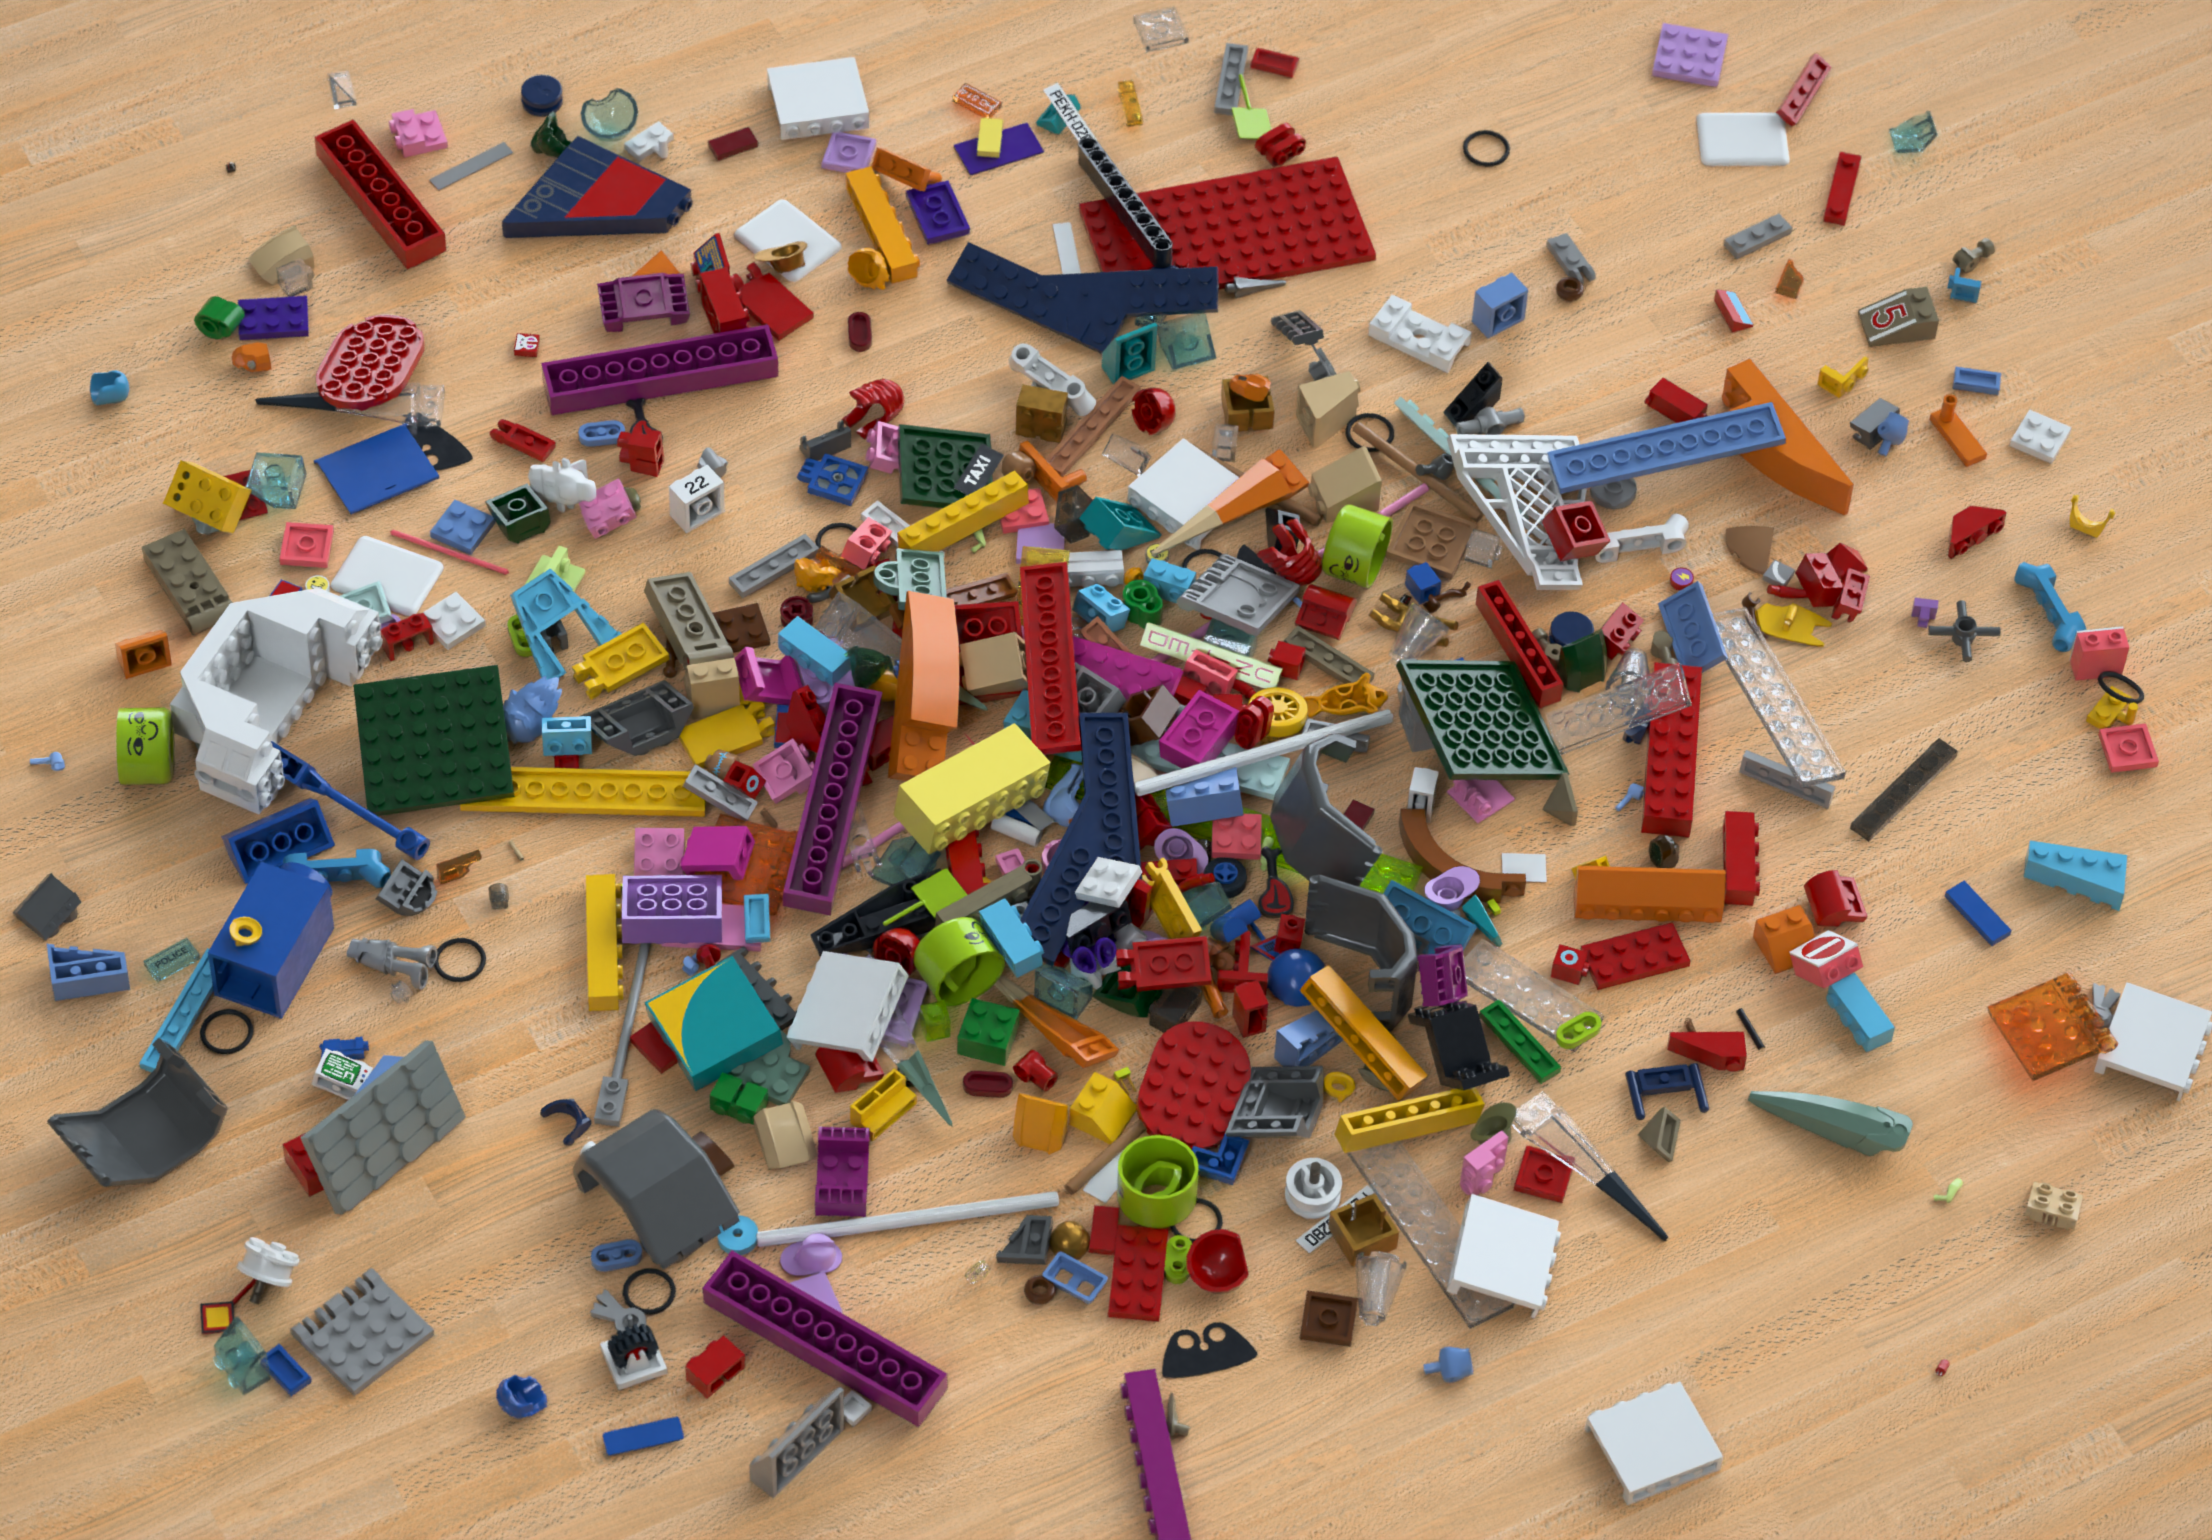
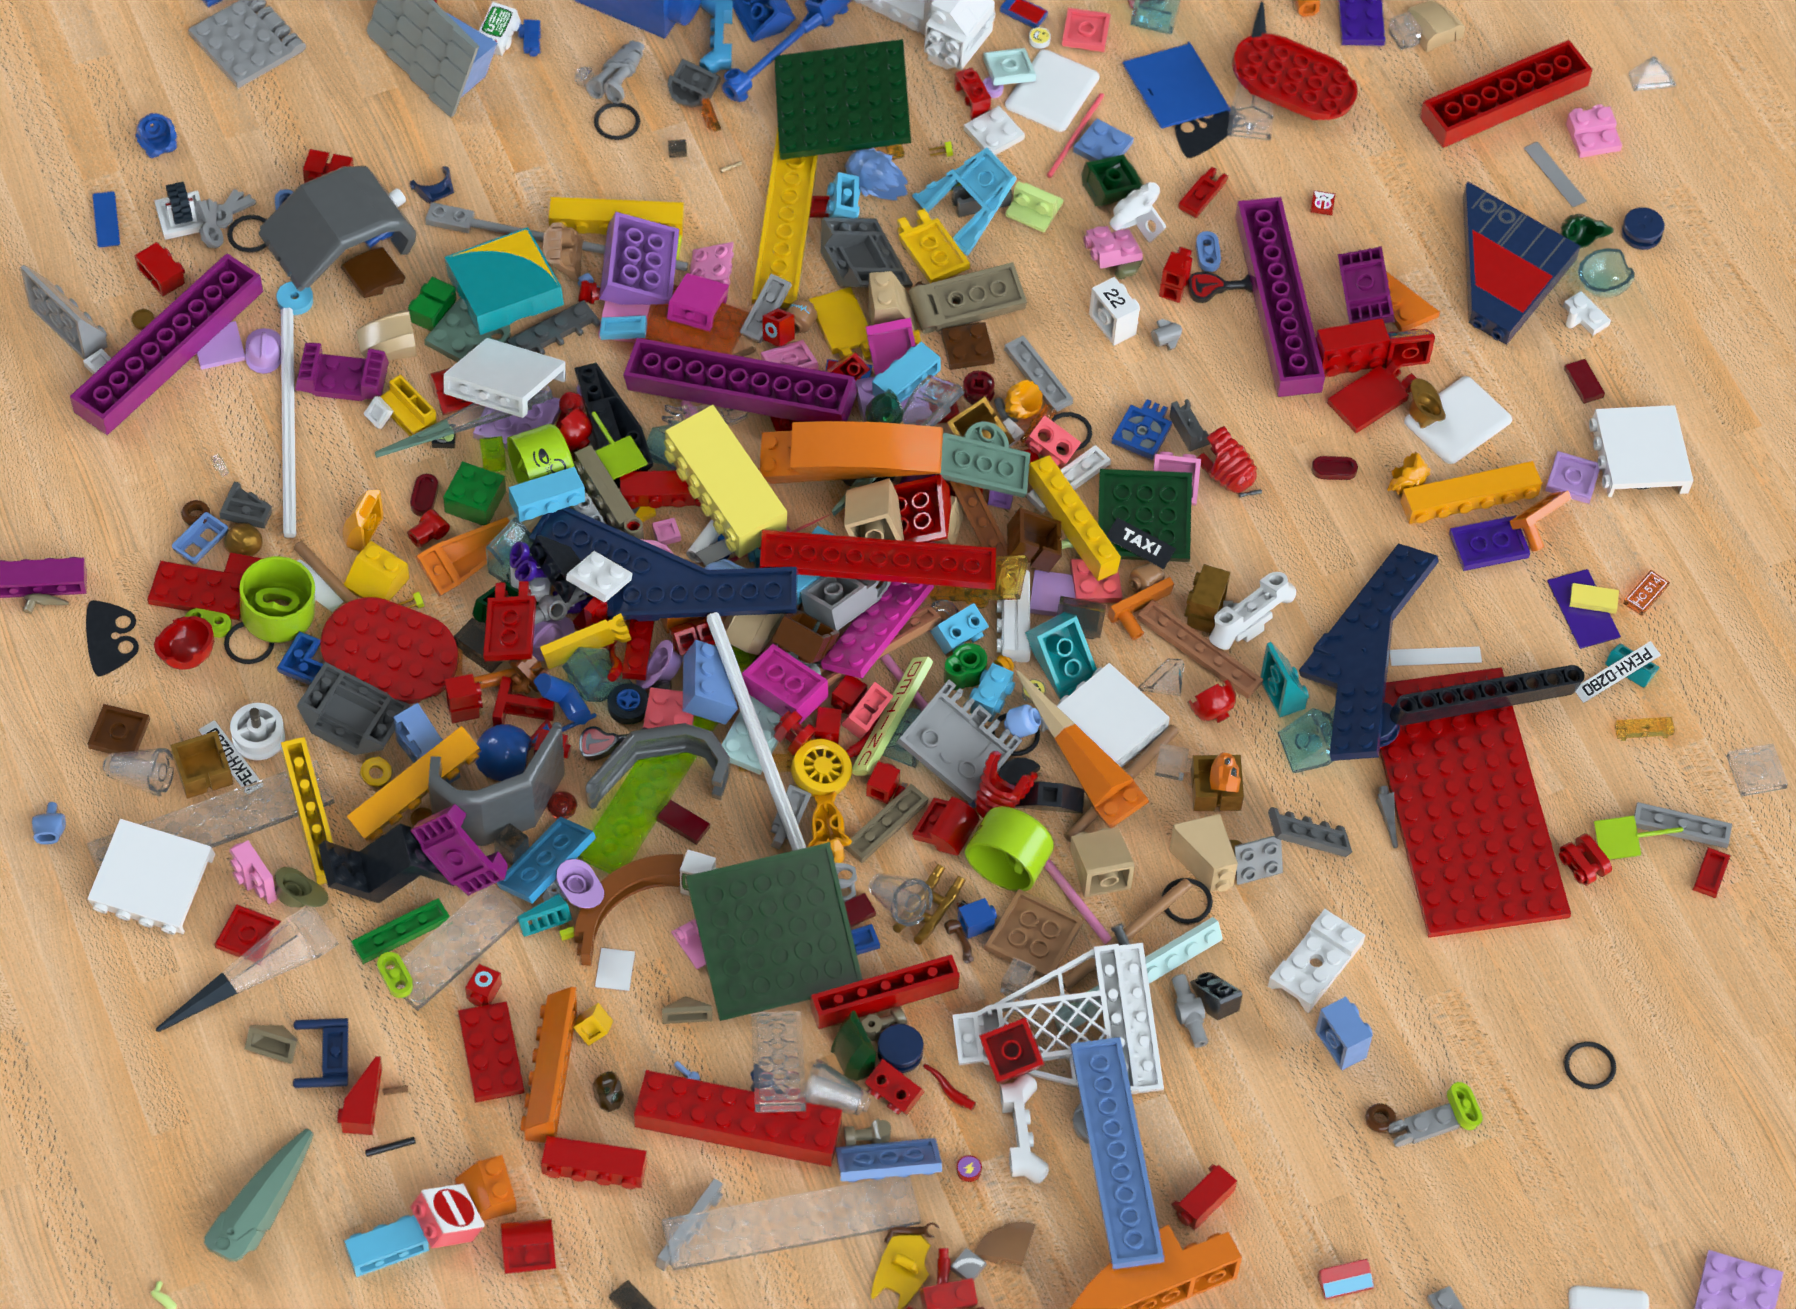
camera: 95 degrees right, 5 degrees up
(477, 659) = (948, 145): none -> piece
(558, 1223) = (317, 165): none -> red piece
(657, 1323) = (209, 231): none -> light grey piece
(661, 974) = (563, 249): none -> medium nougat slope
(780, 1380) = (142, 318): none -> pearl gold piece
(863, 949) = (571, 401): none -> red wheel
(890, 1133) = (378, 412): none -> white tile
(990, 558) = (1036, 538): none -> reddish brown piece
(1203, 552) = (1023, 721): none -> light blue head
(1548, 228) = (1464, 1106): none -> lime plate
(1609, 593) = (953, 1094): none -> red animal

